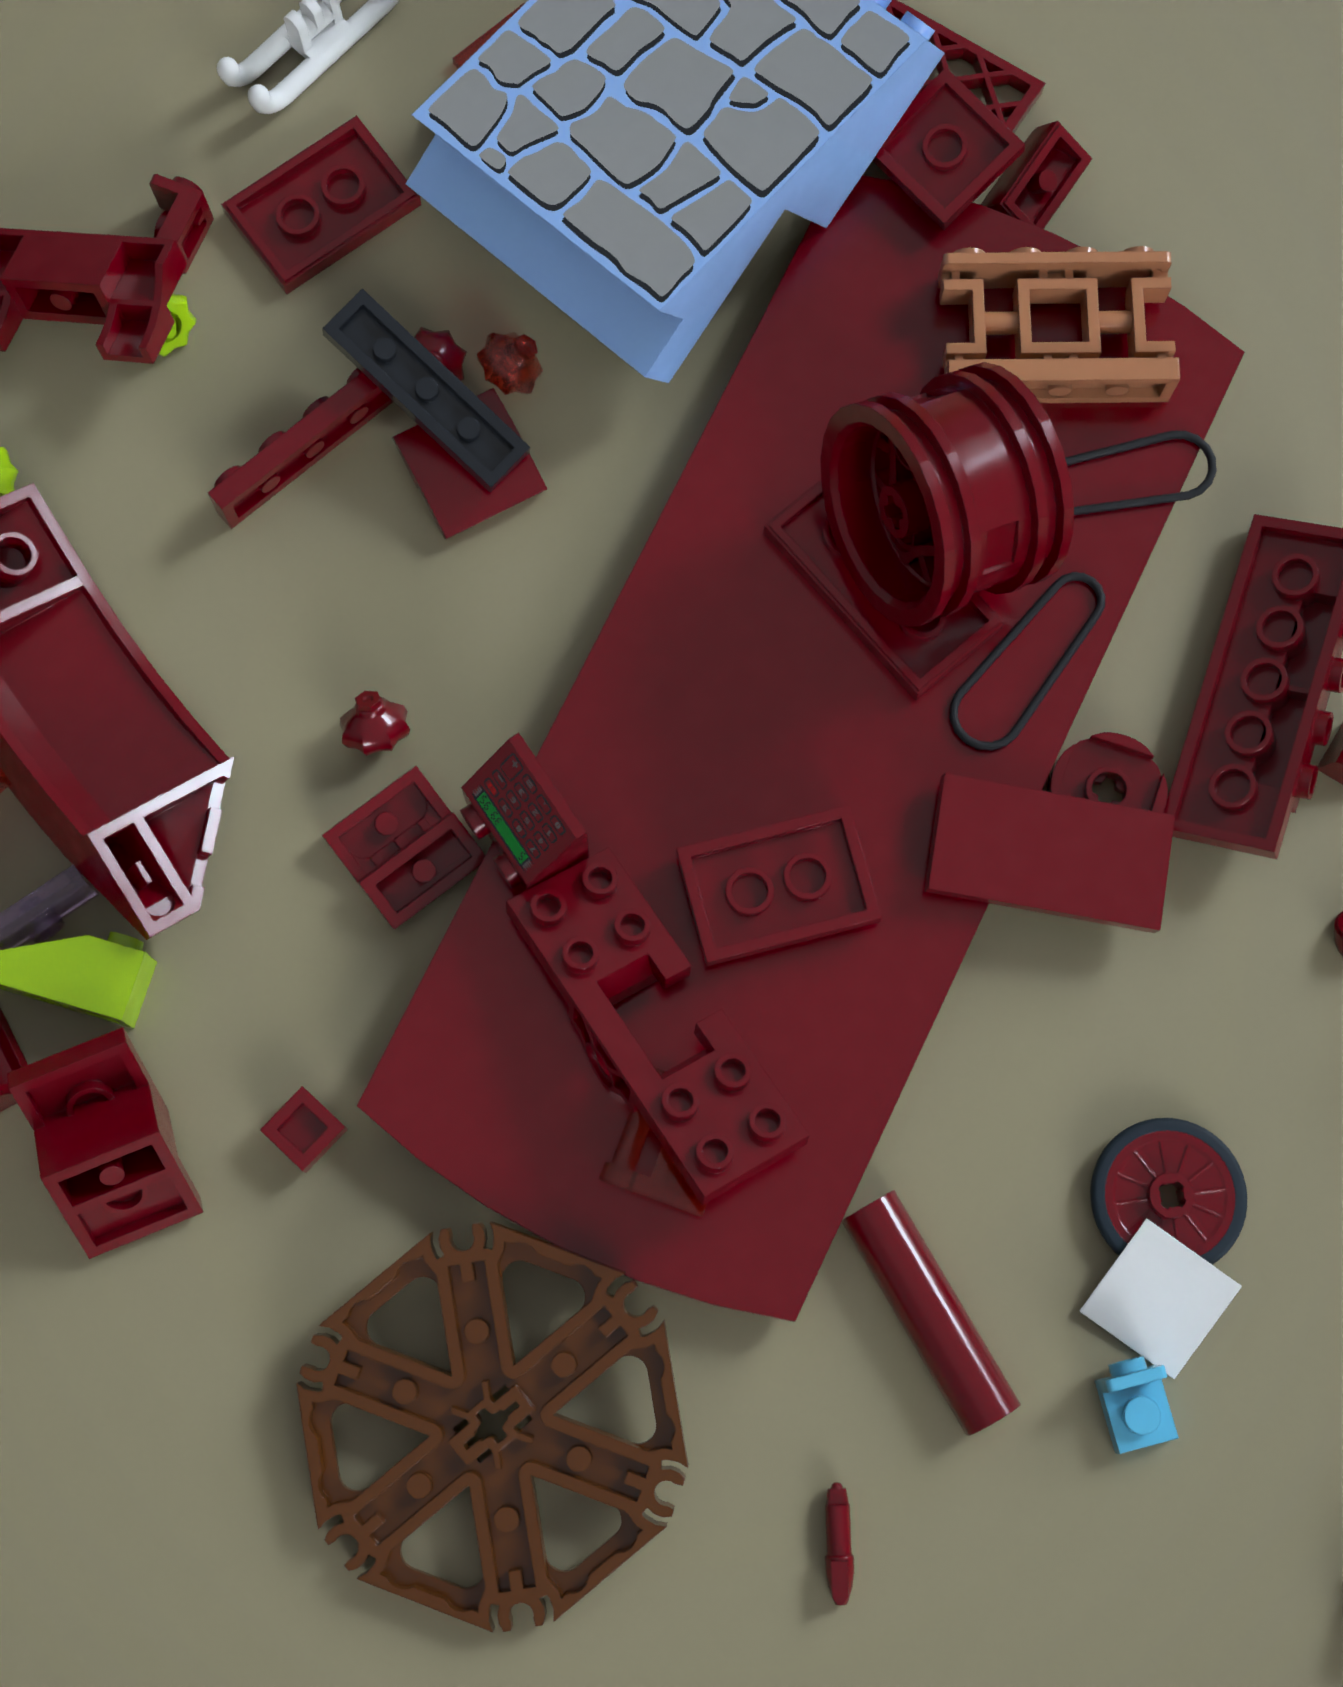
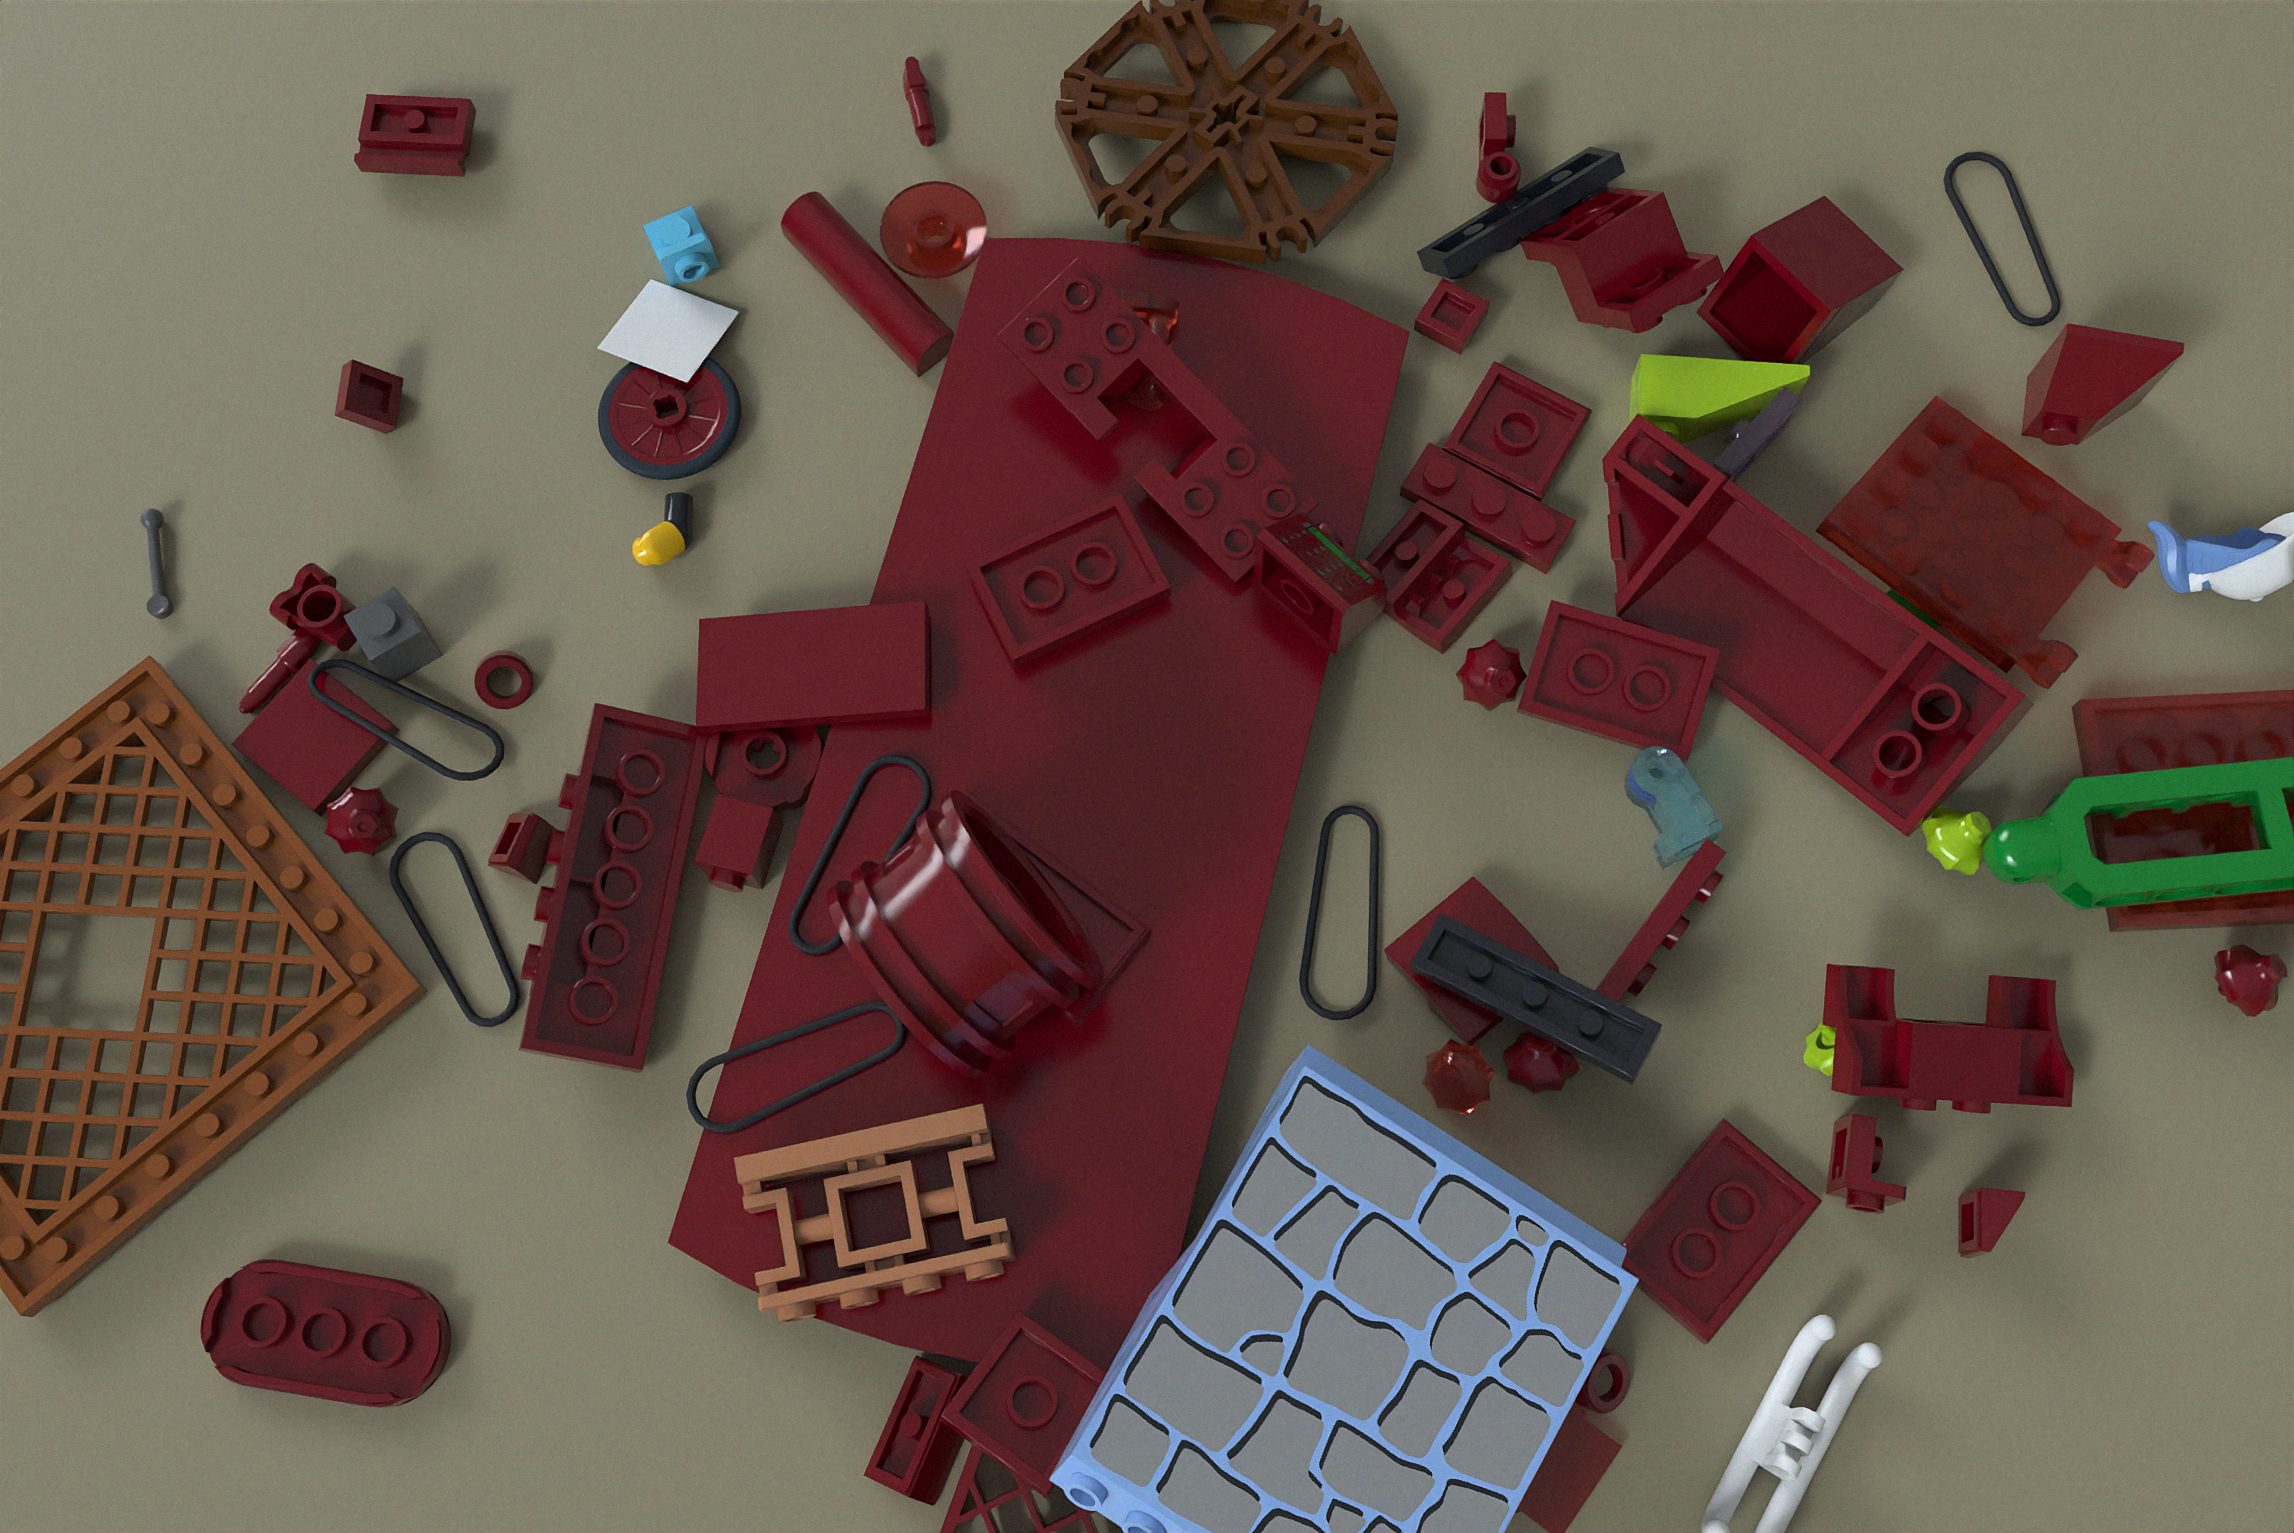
camera: 175 degrees right, 5 degrees down
(86, 158) = (1984, 1217): none -> dark red slope
(191, 1238) = (1531, 206): none -> black plate
(192, 1344) = (1497, 171): none -> dark red plate
(236, 563) = (1673, 803): none -> clear light blue leg
(253, 691) = (1618, 680): none -> dark red plate
(273, 987) = (1517, 430): none -> dark red tile
(327, 909) = (1489, 507): none -> dark red plate
(594, 447) = (1313, 911): none -> black piece
(882, 1349) = (930, 211): none -> clear red dish
(1144, 701) = (738, 844): none -> dark red brick
(1180, 1049) = (670, 536): none -> yellow arm

